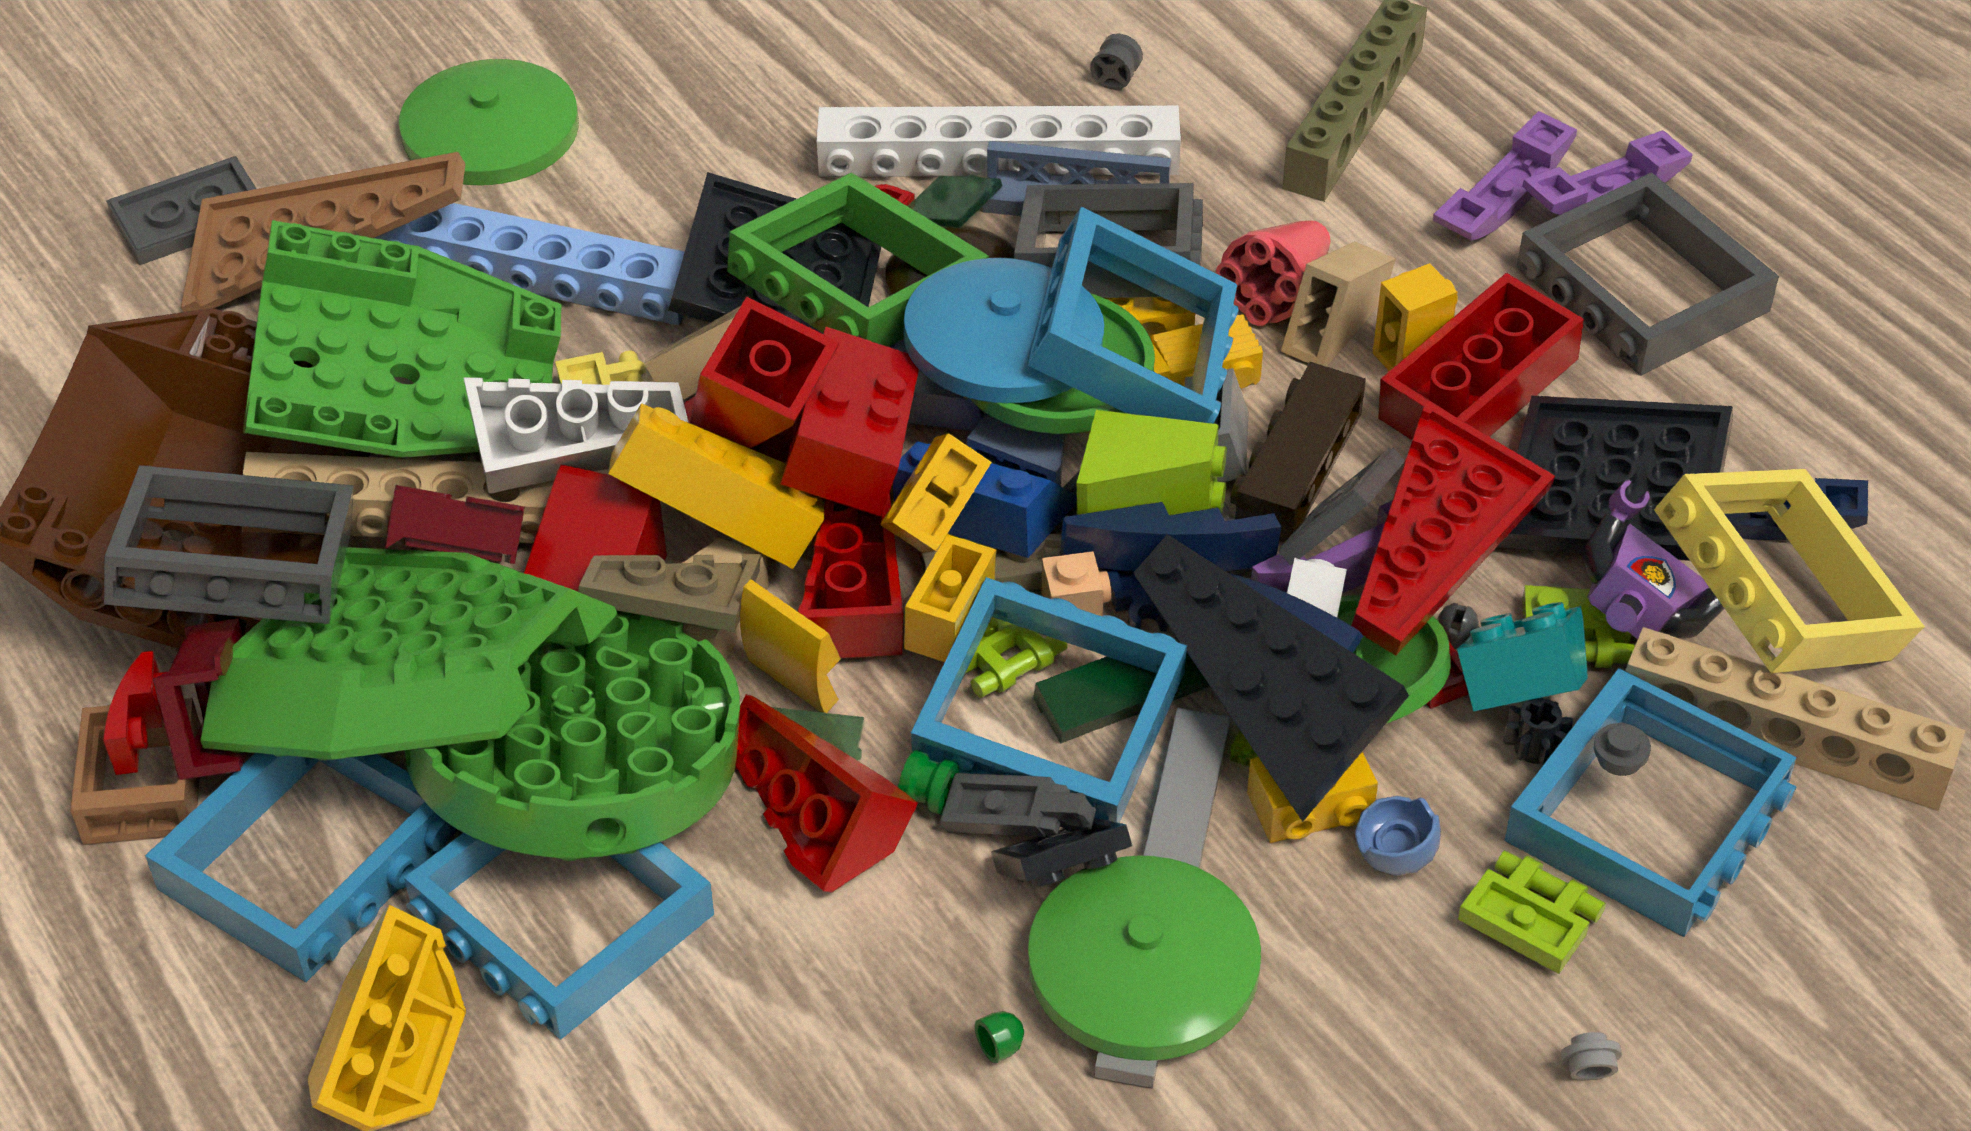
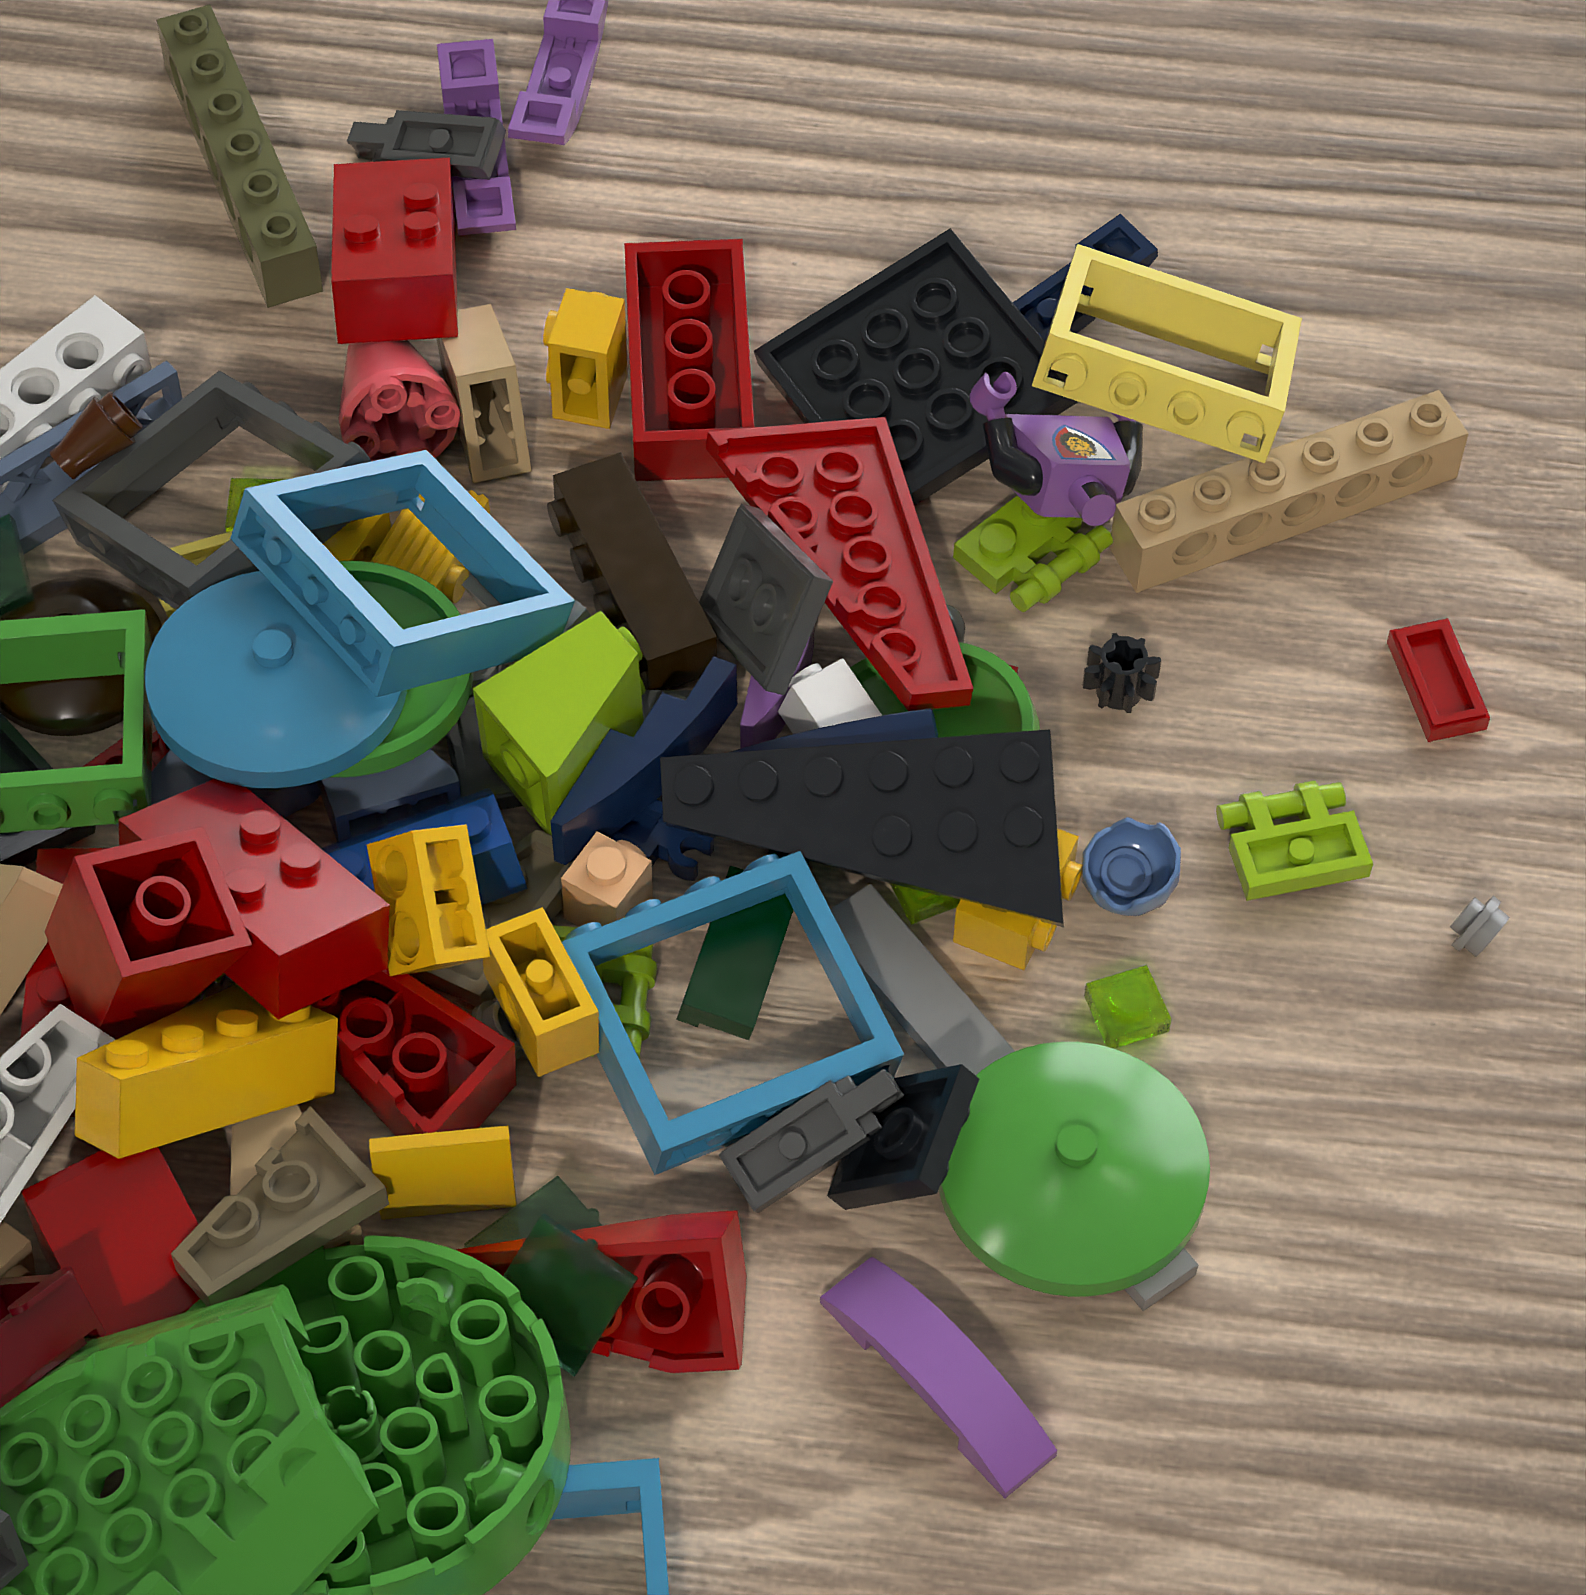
camera: 50 degrees left, 10 degrees up
(773, 761) = (569, 1288): none -> clear green piece
(927, 780) = (705, 1181): green wheel -> none
(928, 1001) = (945, 1371): none -> medium lavender slope
(999, 1035) = (1040, 1352): green hinge -> none
(1085, 165) = (97, 434): none -> reddish brown cone
(1302, 911) = (1127, 1007): none -> clear neon green plate
(1367, 190) = (394, 251): none -> red brick
(1474, 162) = (410, 135): none -> dark grey hinge
(1525, 656) = (1051, 612): teal slope -> none
(1621, 748) = (1224, 632): dark grey plate -> none
(1686, 730) = (1255, 564): dark azure window -> none
(1744, 279) = (706, 78): dark grey window -> none
(1760, 907) = (1438, 680): none -> red tile

